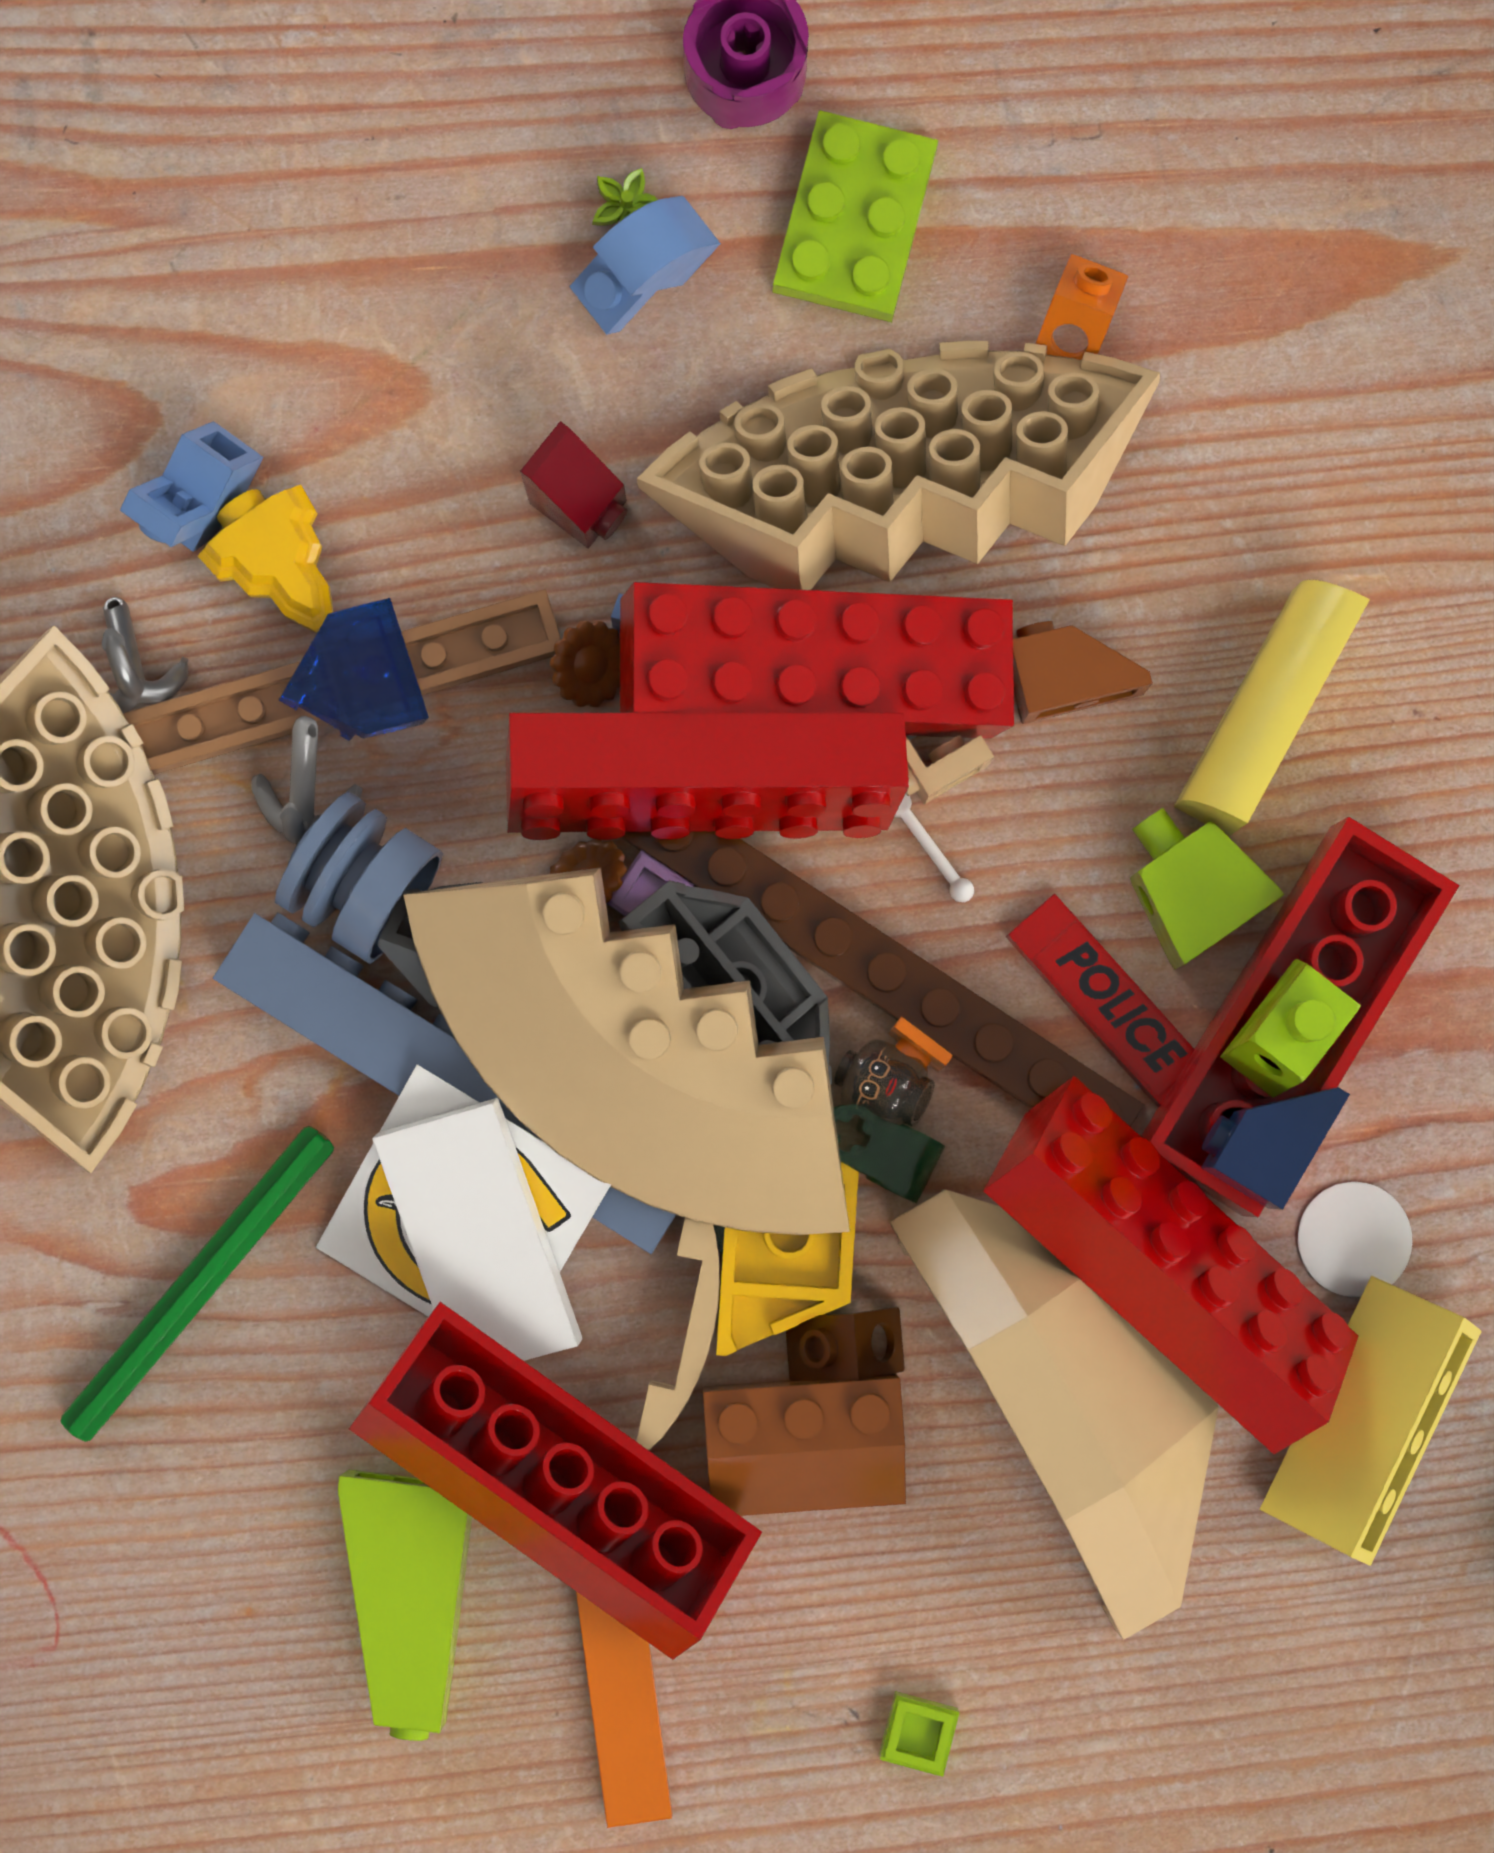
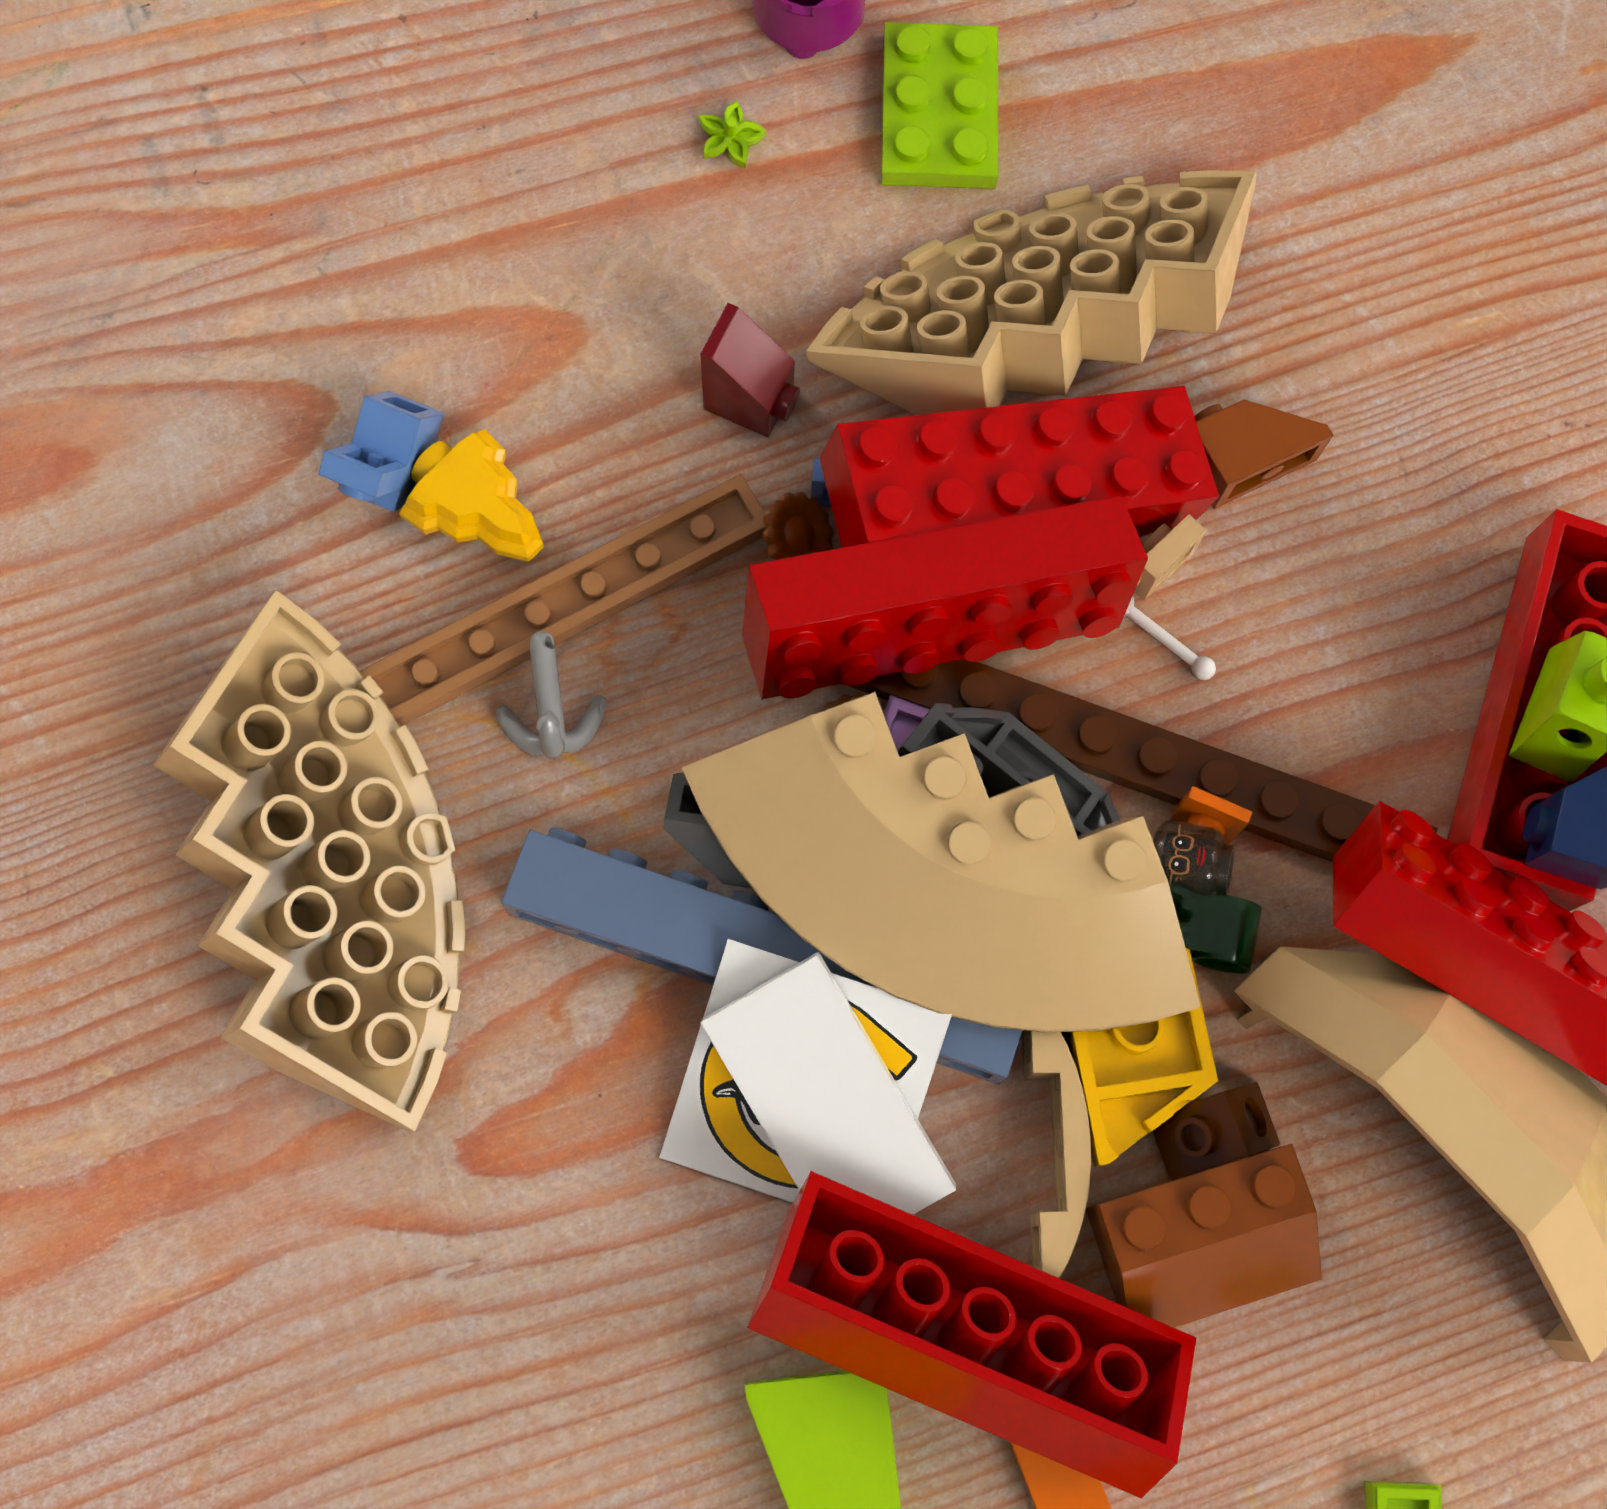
camera: 15 degrees left, 10 degrees down
(126, 665) = (361, 642): flat silver piece -> none
(196, 1284) = (544, 1226): green axle -> none
(347, 870) = (614, 768): sand blue wheel -> none
(358, 674) = (582, 583): clear blue slope -> none
(640, 255) = (759, 162): medium blue brick -> none
(1083, 298) = (1166, 125): orange bracket -> none
(1103, 997) = (1365, 739): red tile -> none
(1196, 886) = (1425, 614): lime torso -> none
(1271, 704) = (1444, 436): light yellow brick -> none

